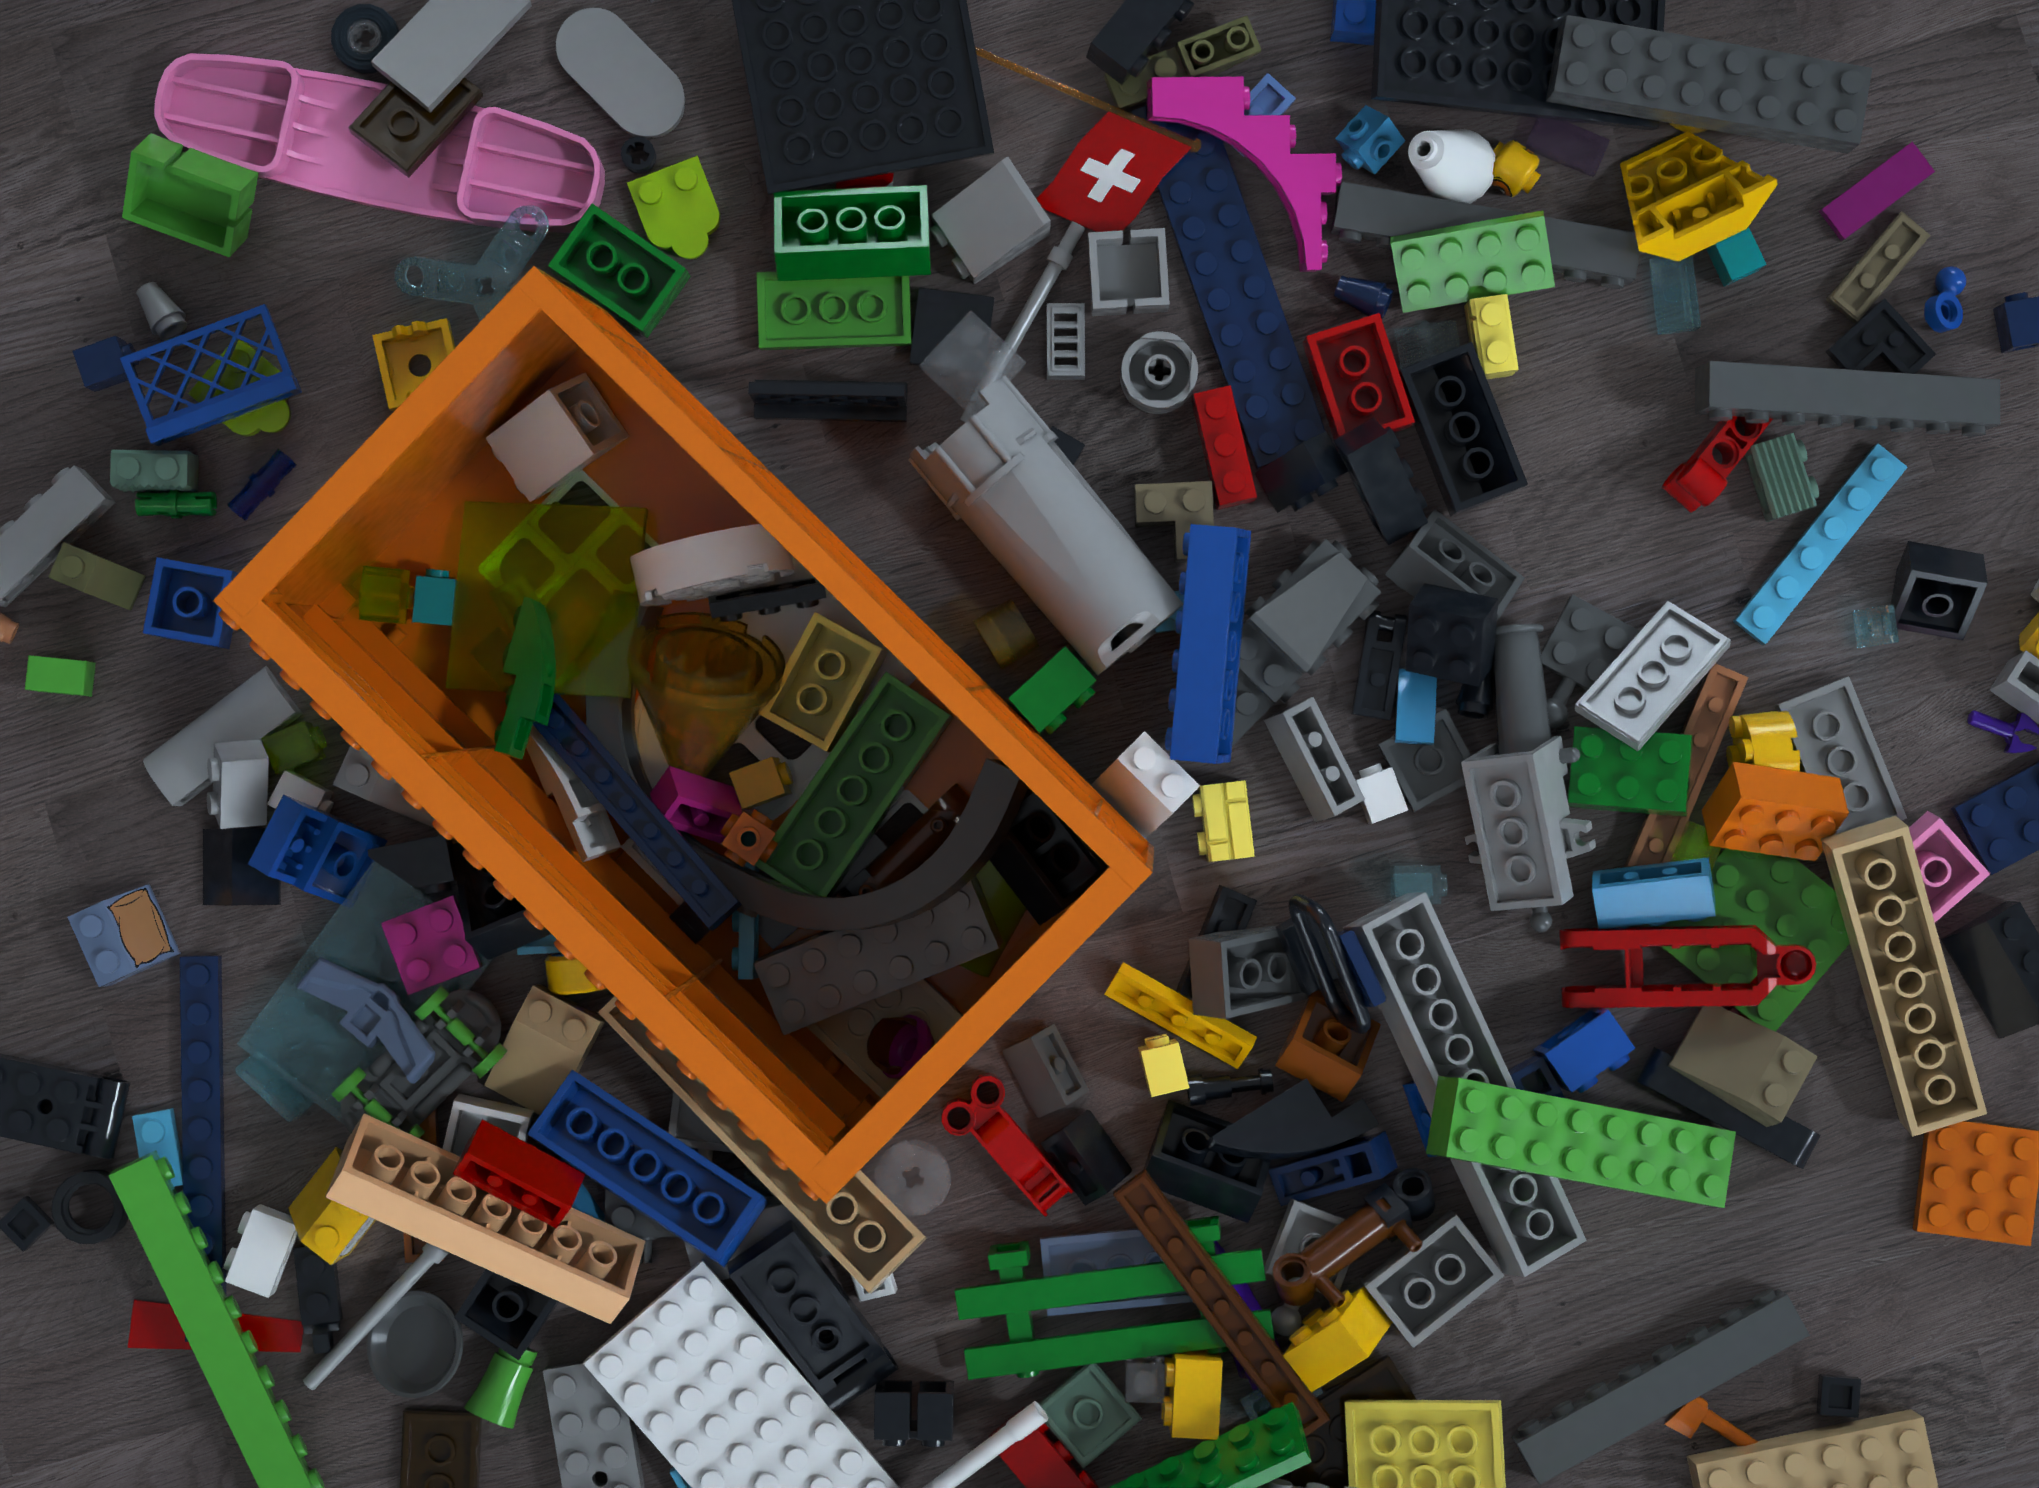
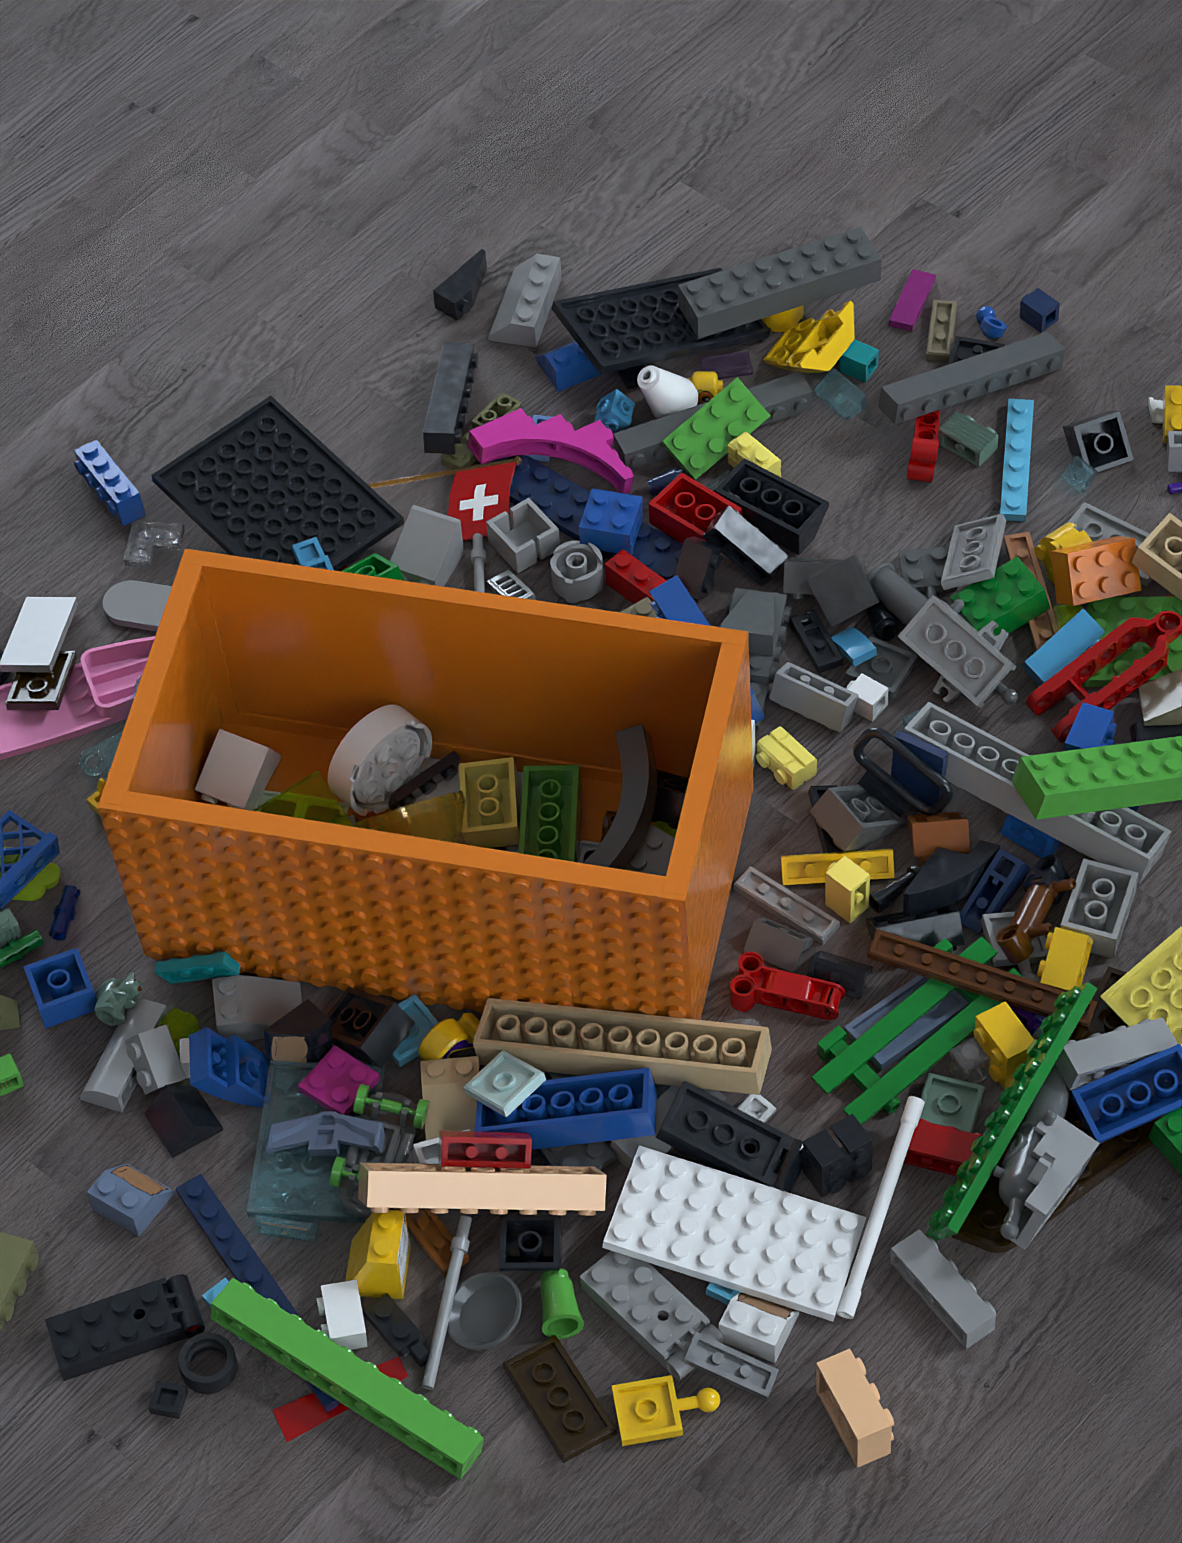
camera: 25 degrees left, 35 degrees down
(242, 666) = (115, 997): none -> sand green animal
(599, 1091) = (504, 1083): none -> light aqua tile
(835, 162) = (311, 554): none -> dark azure slope
(1092, 1026) = (786, 905): none -> light grey tile
(1244, 331) = (611, 521): none -> blue brick

